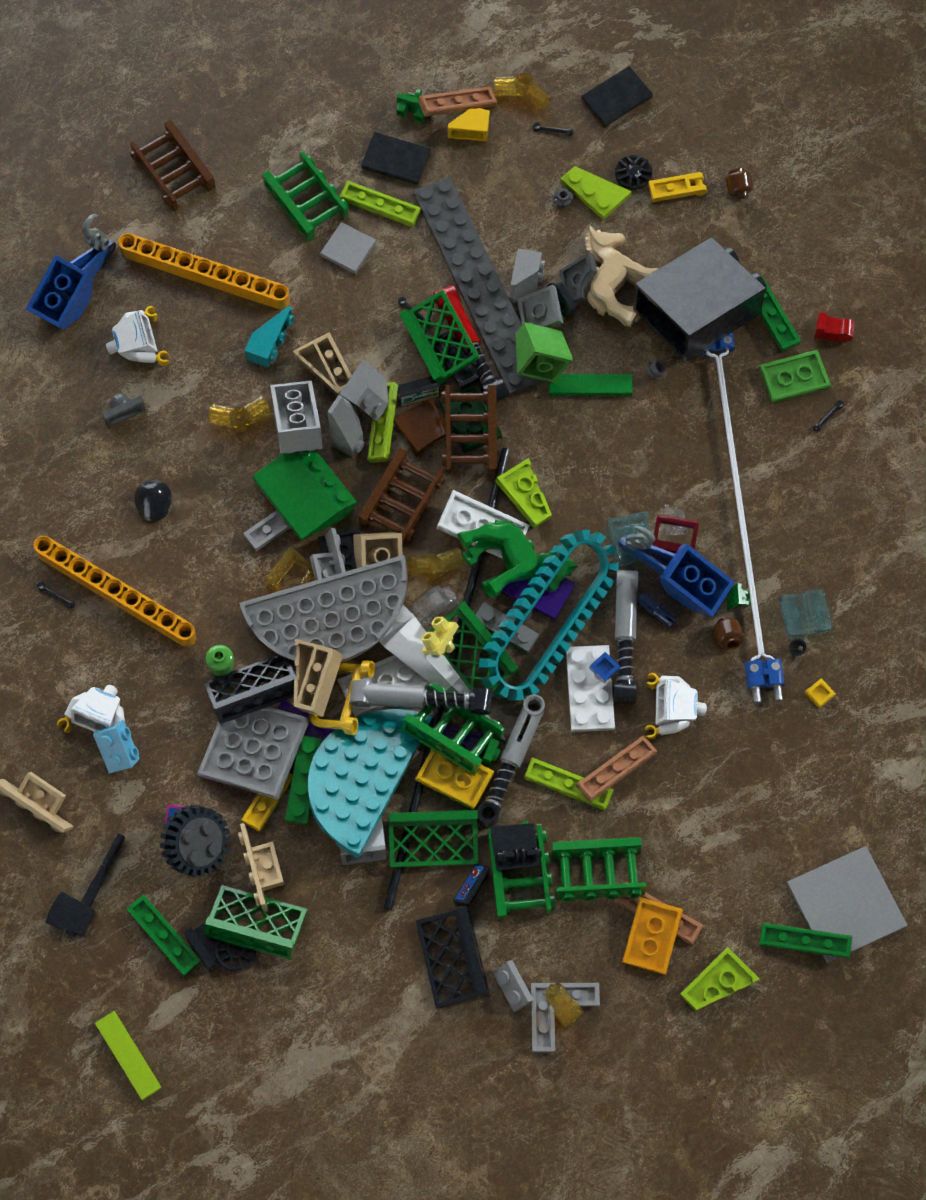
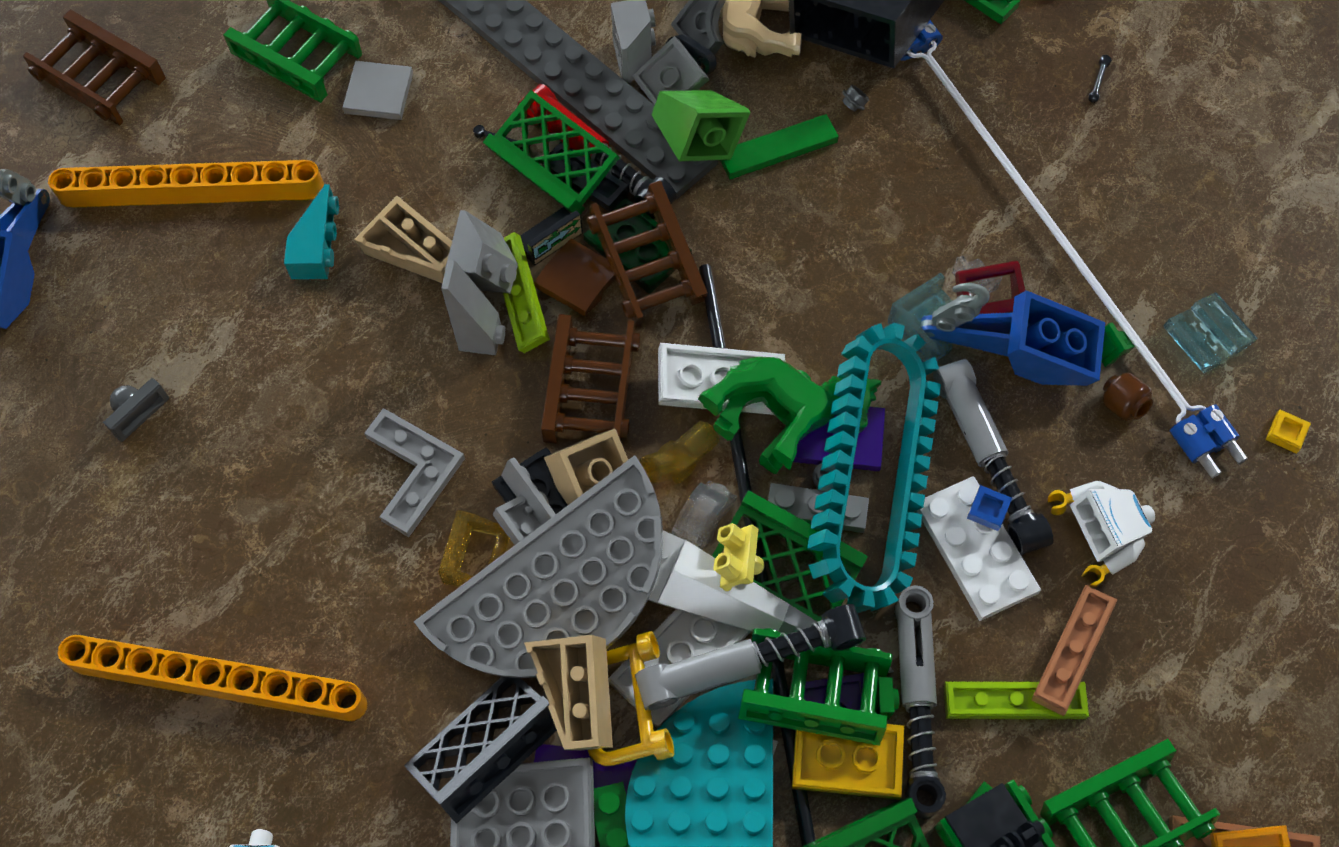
camera: 20 degrees left, 5 degrees down
(42, 586) = (96, 714): black hinge -> none
(135, 338) = (119, 304): white torso -> none
(153, 500) = (225, 519): black hat -> none
(222, 666) = (427, 720): bright green head -> none
(251, 412) = (295, 361): clear yellow piece -> none
(296, 417) = (395, 324): light grey brick -> none
(305, 492) = (447, 422): green slope -> none
(380, 204) = (400, 24): lime tile -> none
(523, 491) = (756, 313): lime wing -> none
(656, 610) = (1014, 403): dark blue axle -> none
(794, 376) = (1032, 47): bright green tile -> none
(800, 643) = (1226, 373): black hinge -> none

